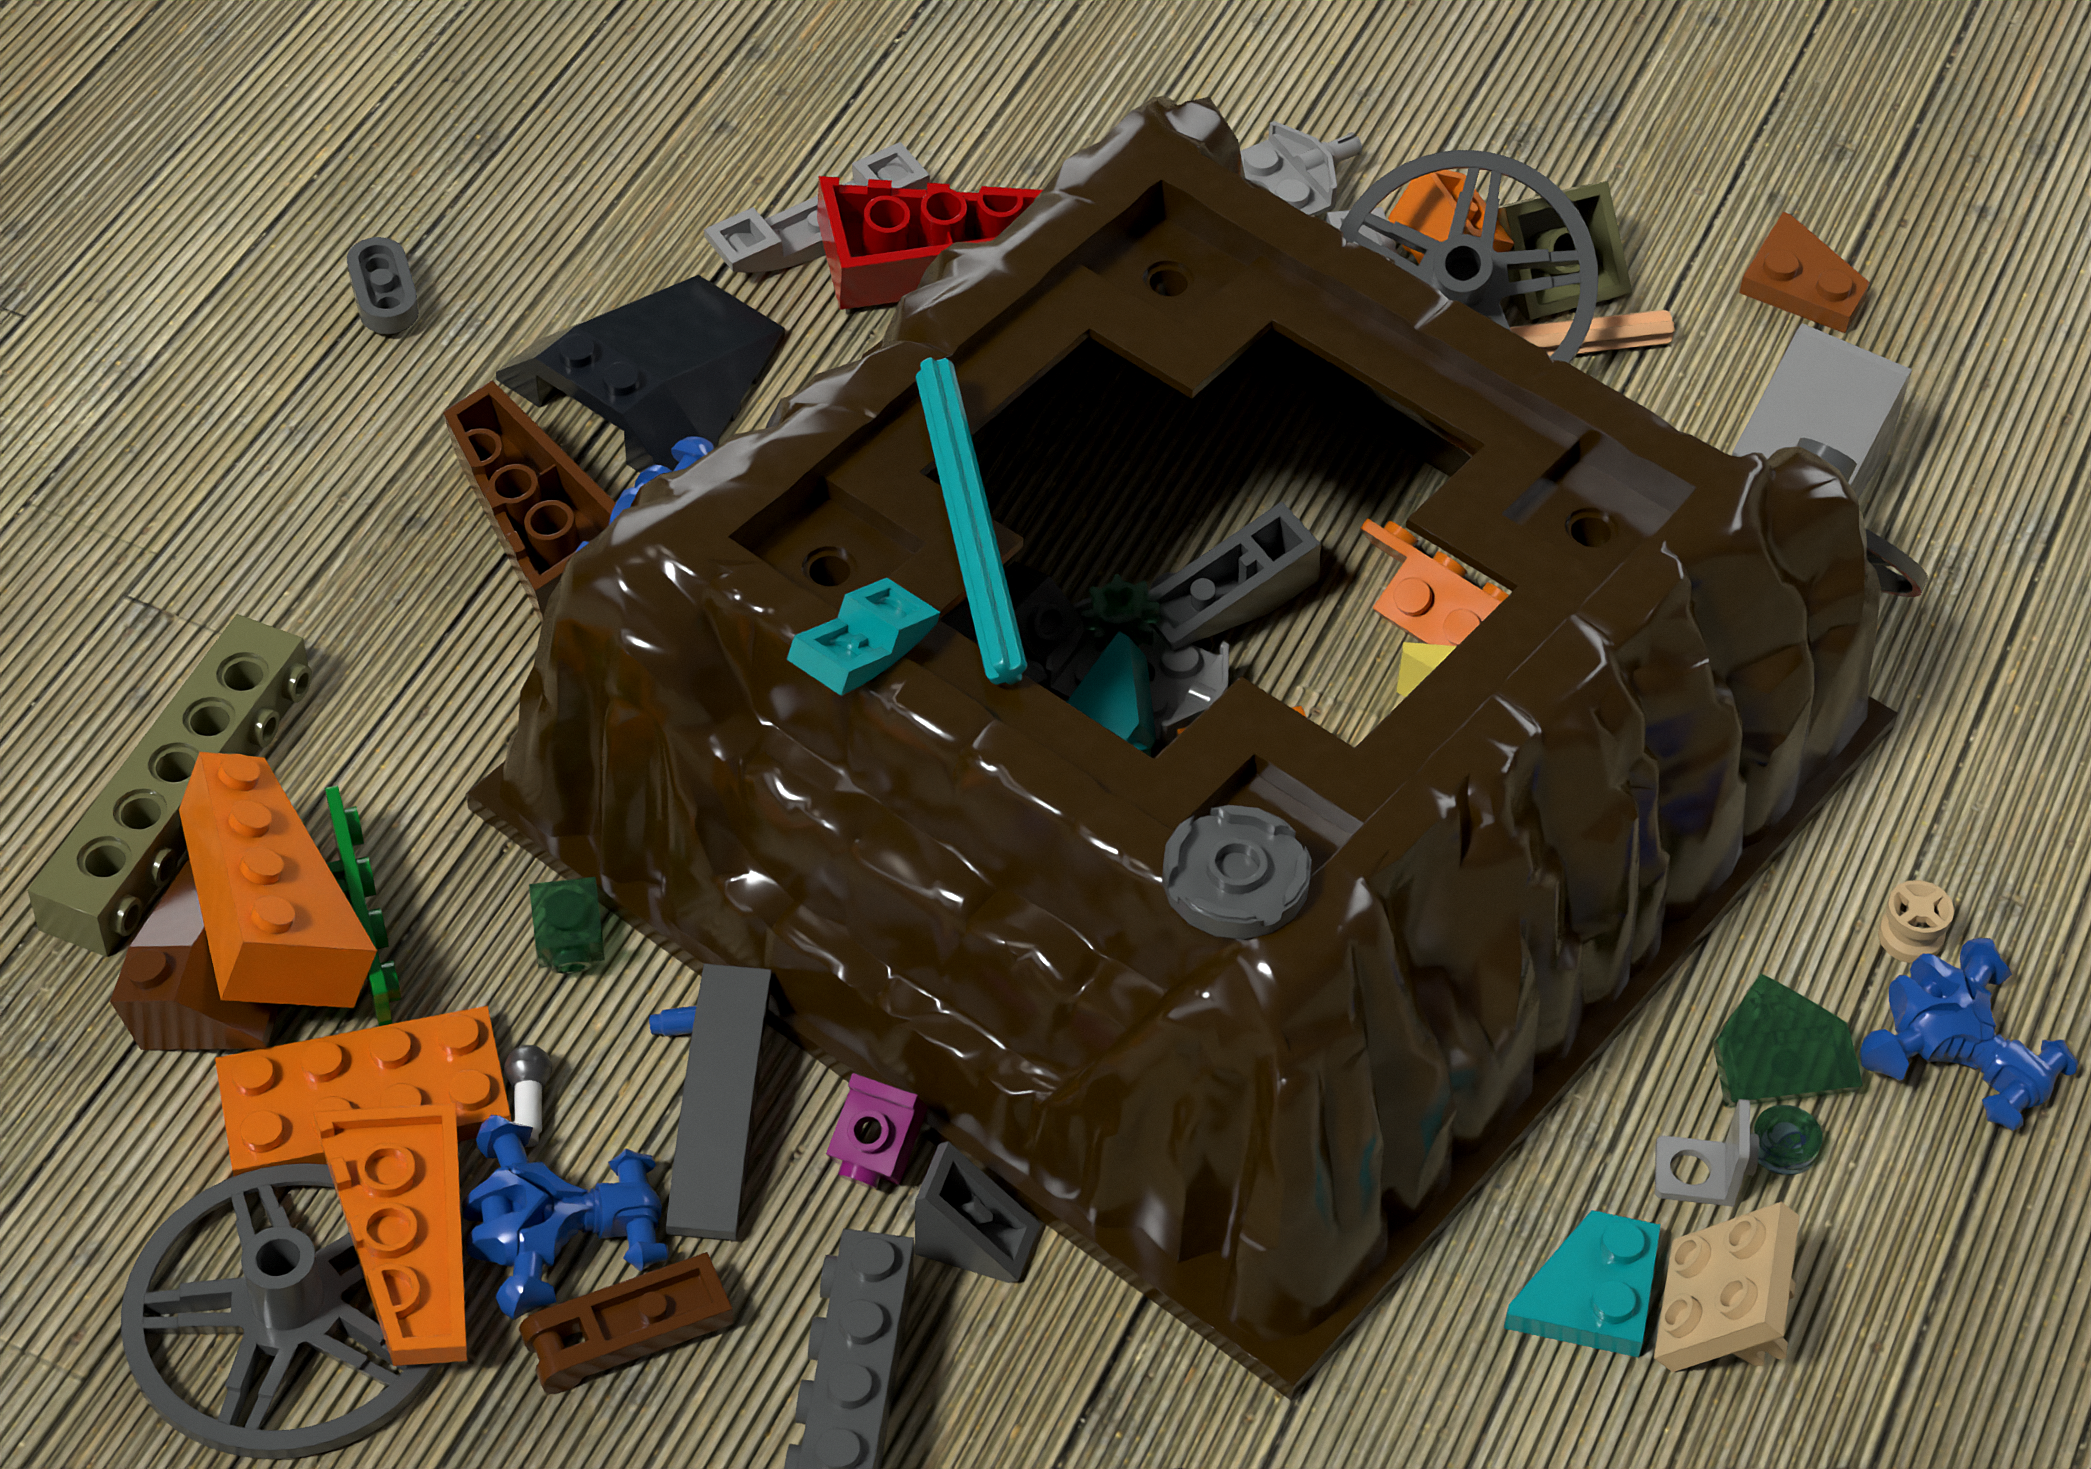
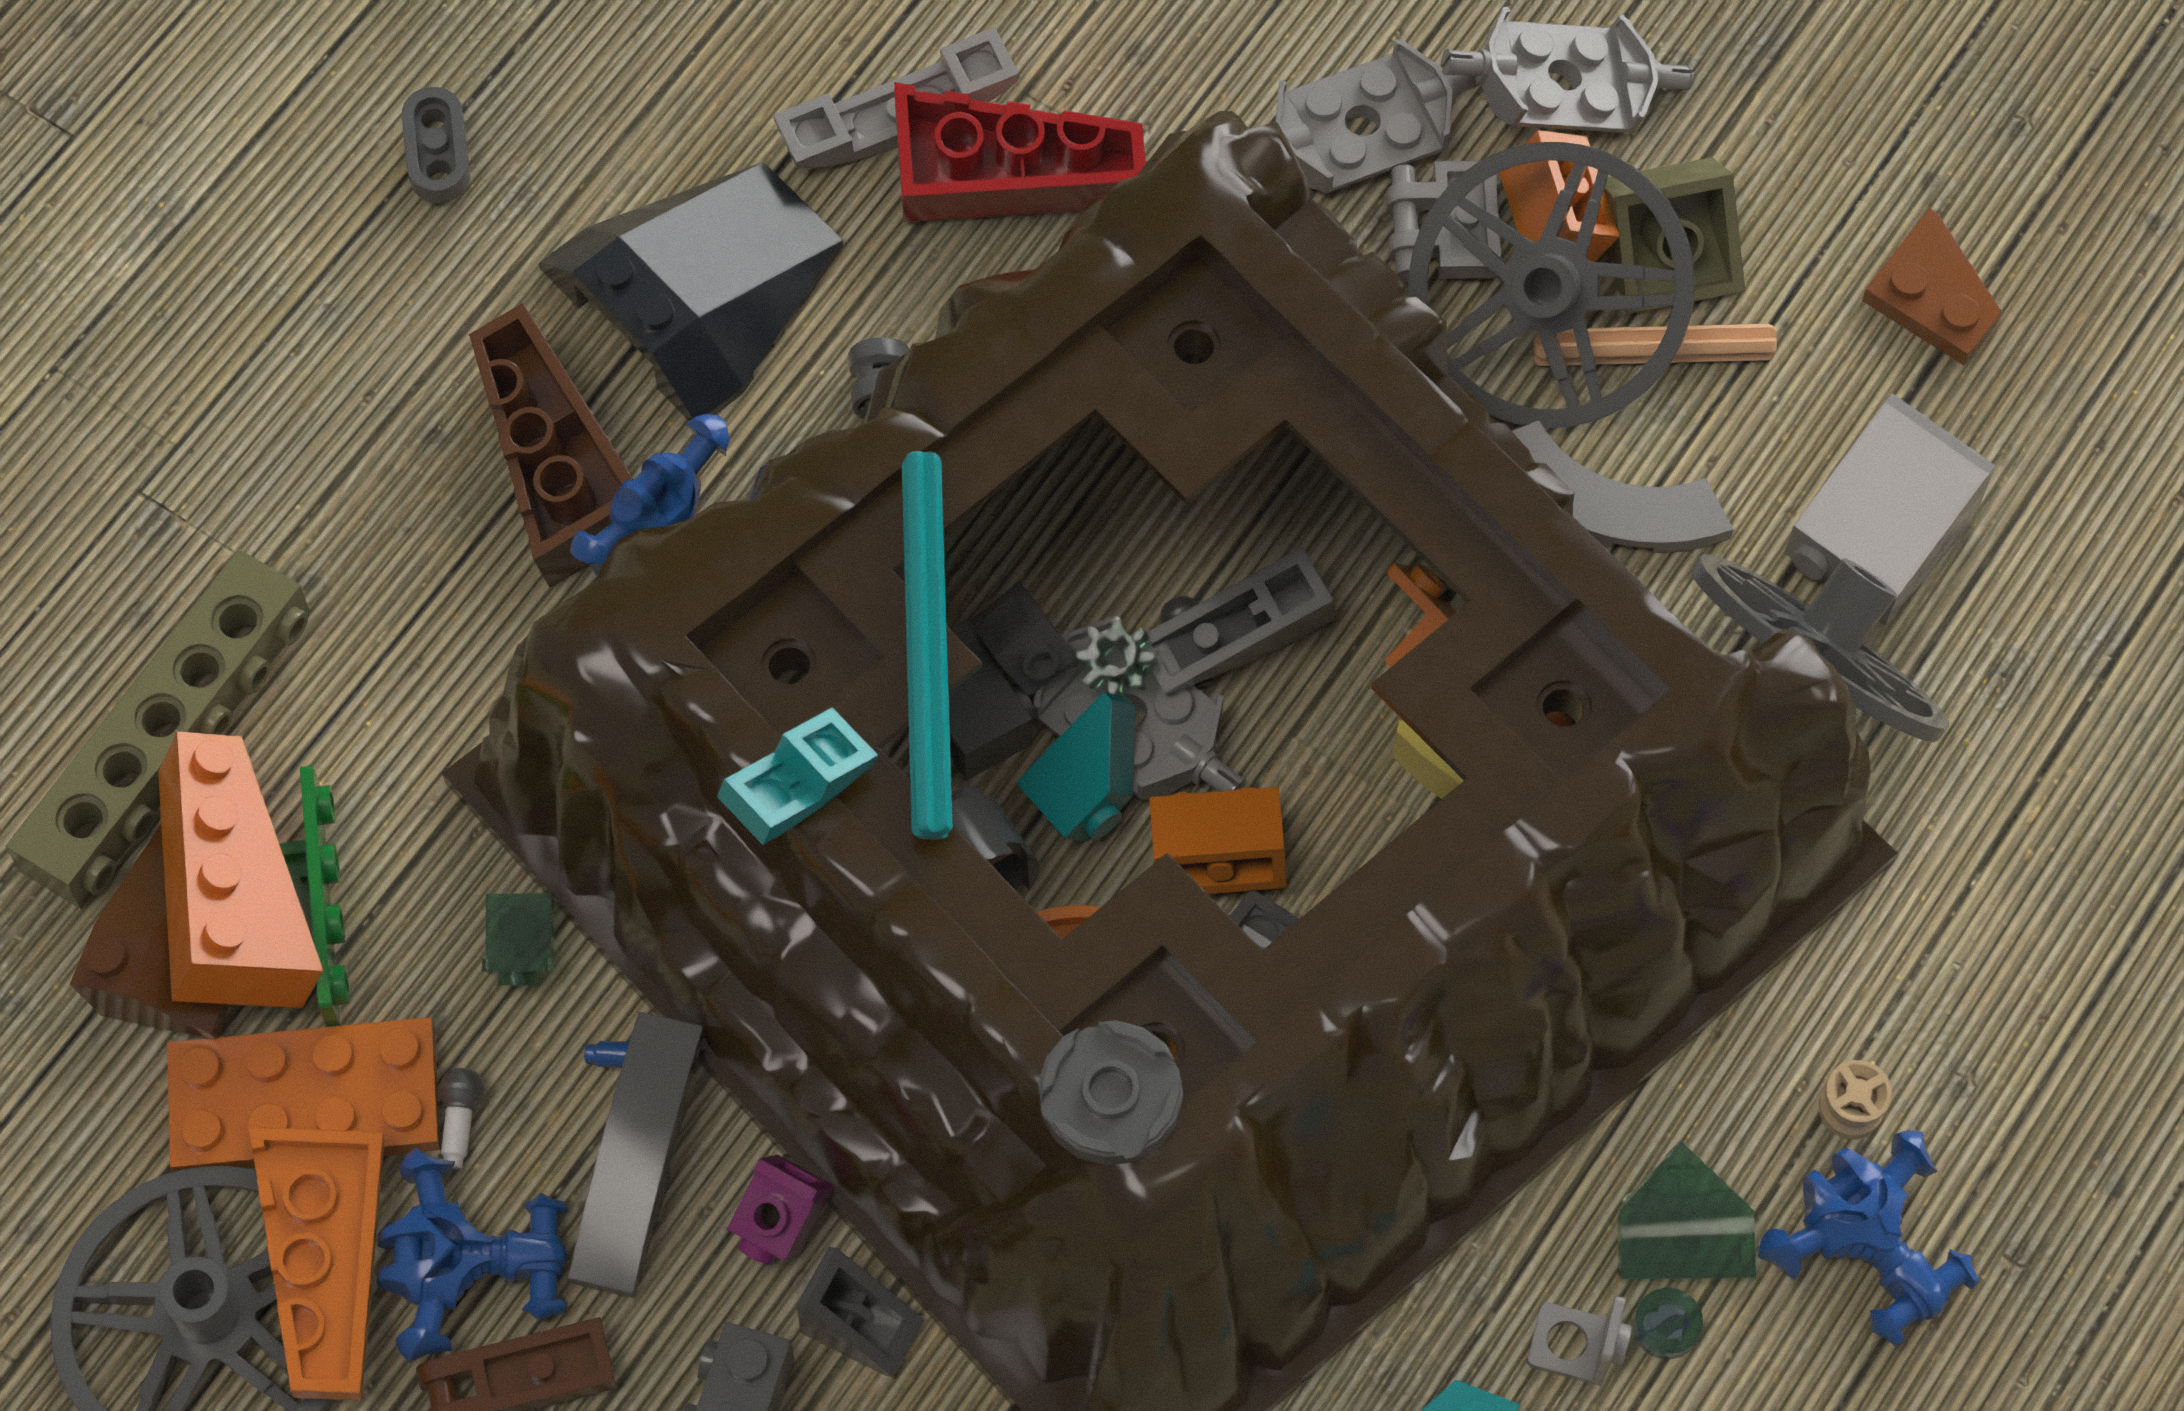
camera: 10 degrees right, 15 degrees up
(1404, 130) = (1607, 68): none -> light grey plate

